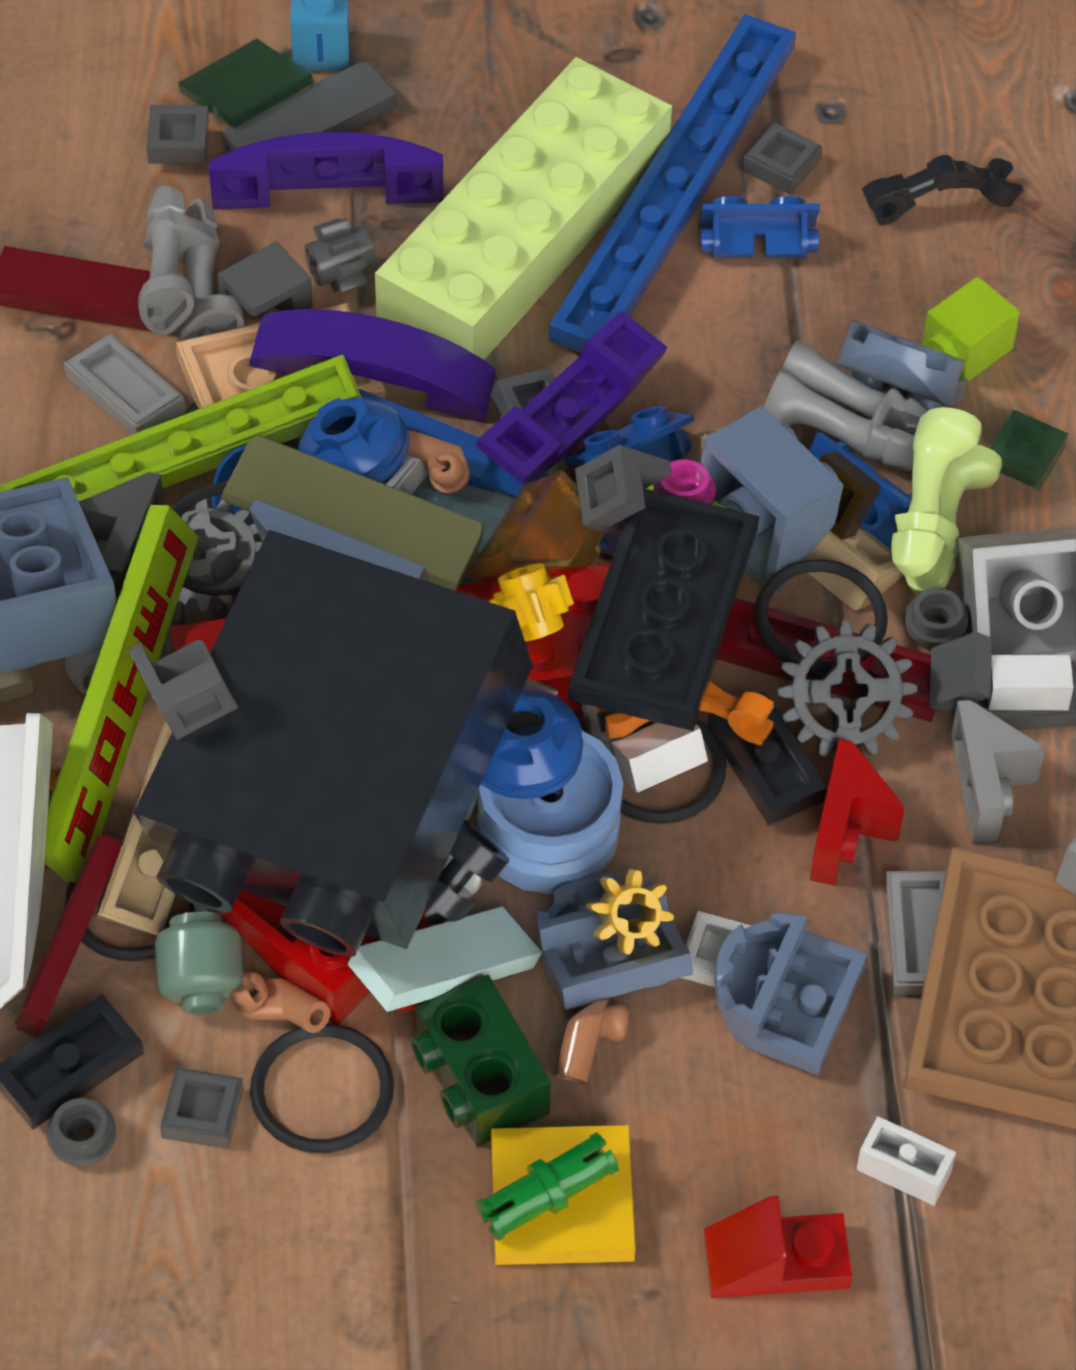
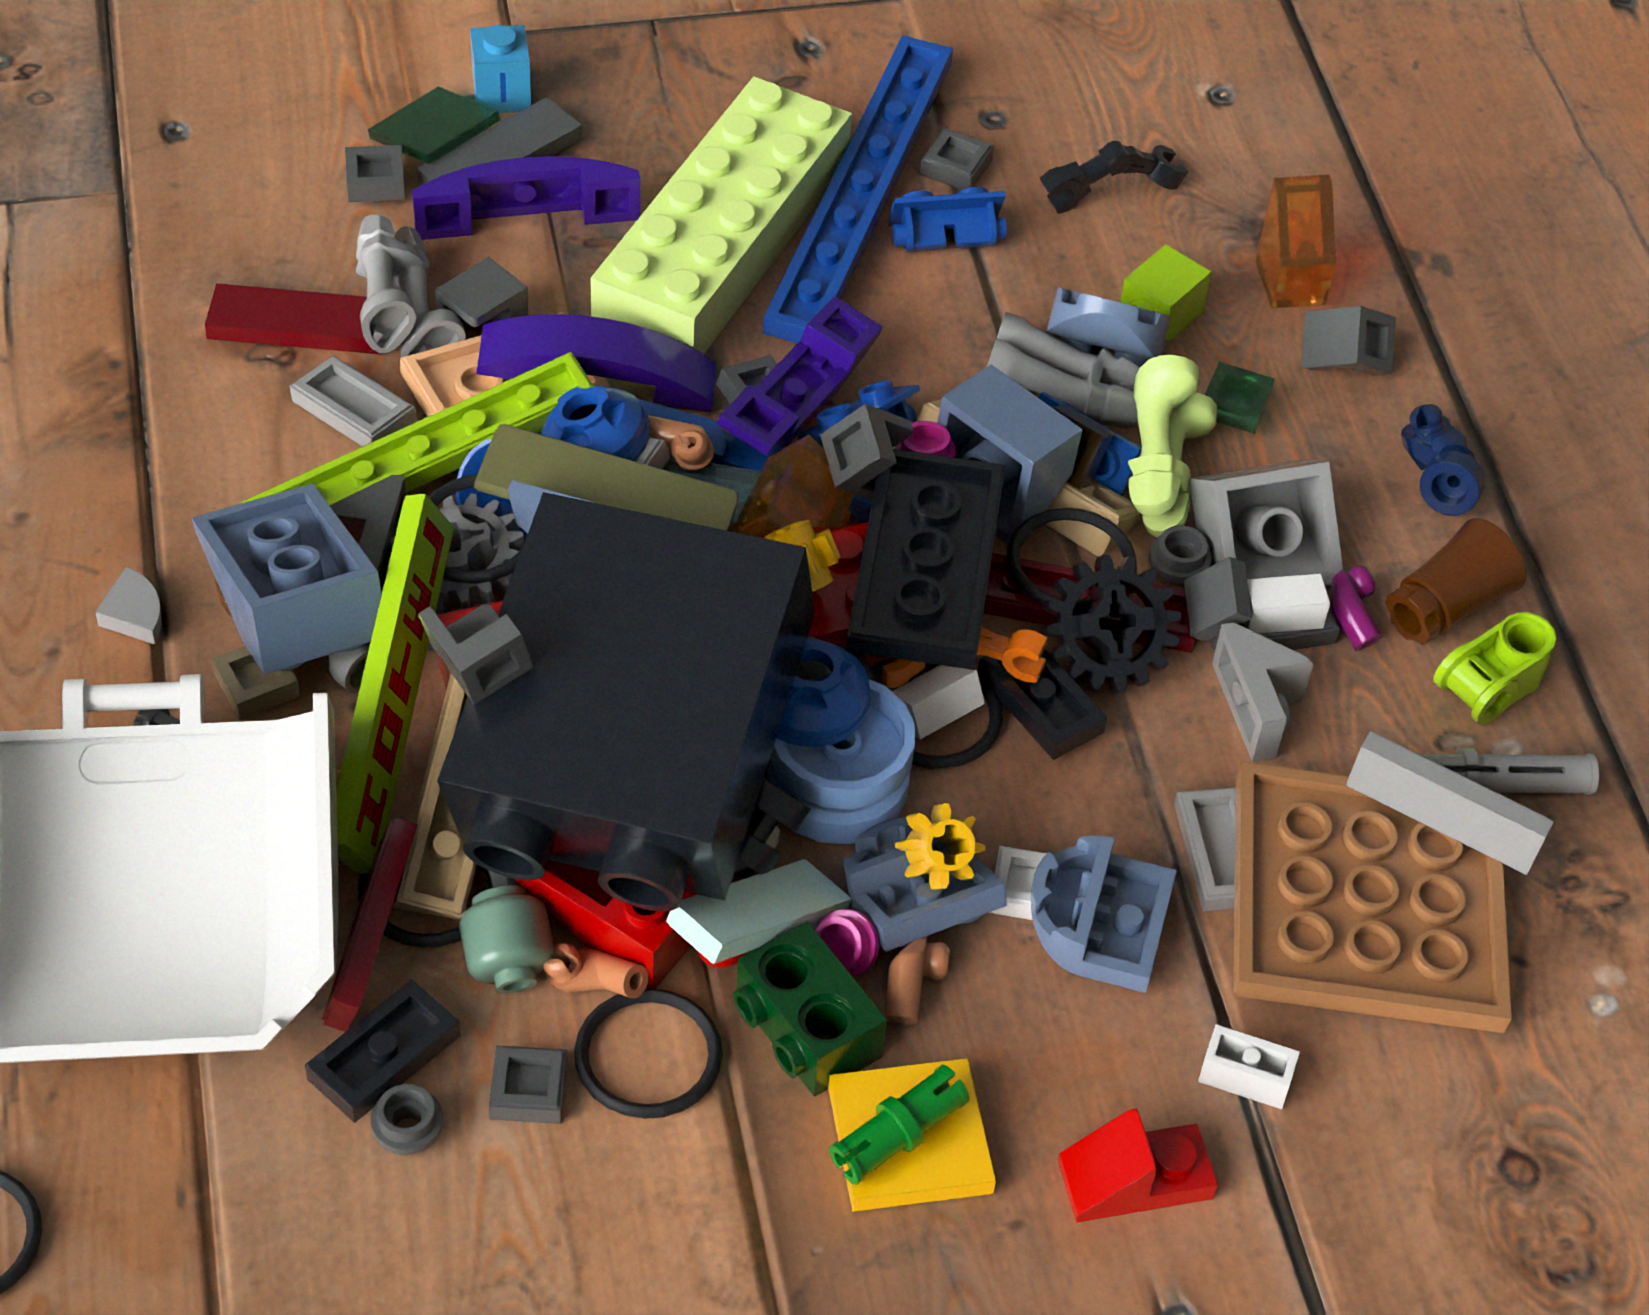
camera: 10 degrees left, 5 degrees down
(340, 255) = (551, 268): dark grey gear -> none
(530, 996) = (851, 939): none -> dark pink plate
(854, 805) = (1137, 733): red slope -> none

